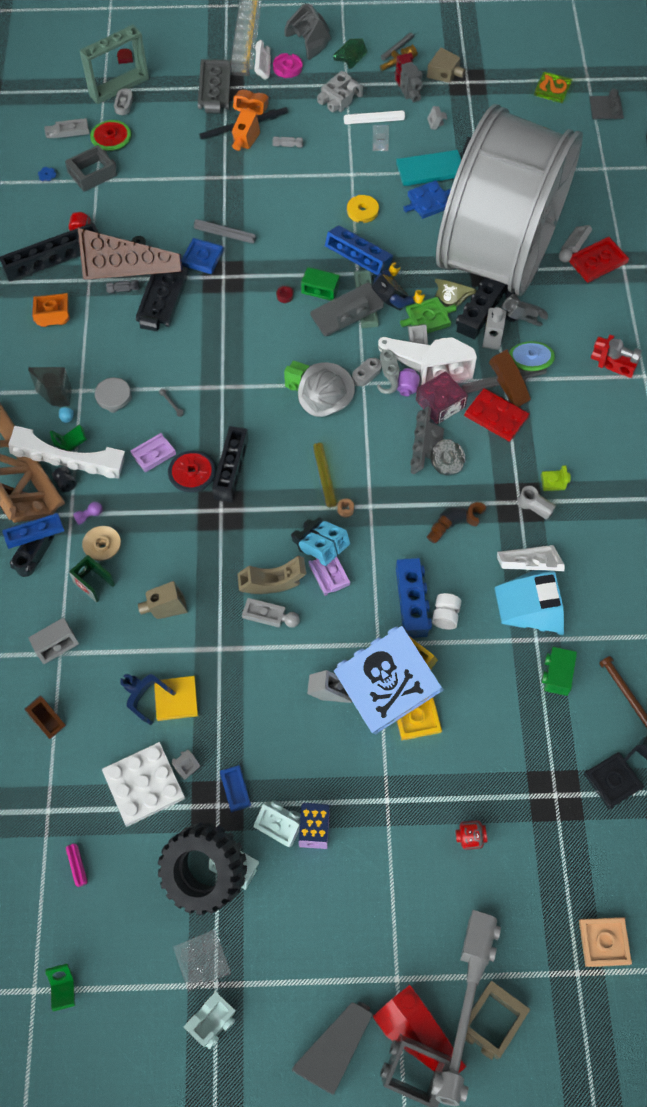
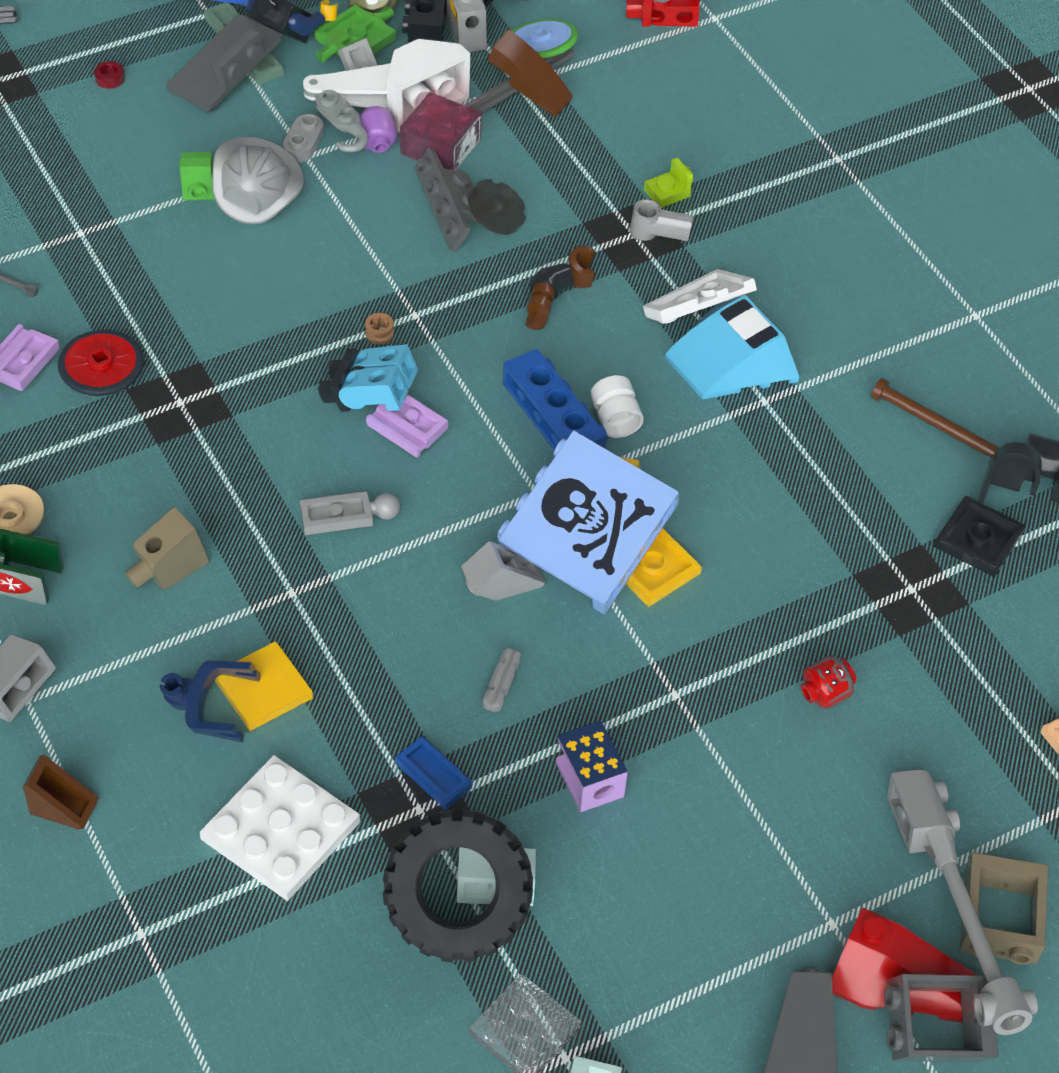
camera: 30 degrees left, 10 degrees down
(76, 865) = (238, 987): dark pink axle -> none
(185, 764) = (335, 767): light grey tile -> none
(230, 464) = (163, 326): black brick -> none
(273, 580) = (329, 461): dark tan arch -> none
(278, 822) = (533, 787): light aqua bracket -> none
(298, 750) = (501, 680): none -> light grey axle
(320, 284) = (162, 40): green brick -> none
(324, 475) = (320, 295): clear yellow axle -> none
(497, 415) = (534, 132): red plate -> none
(559, 671) = (825, 422): green brick -> none

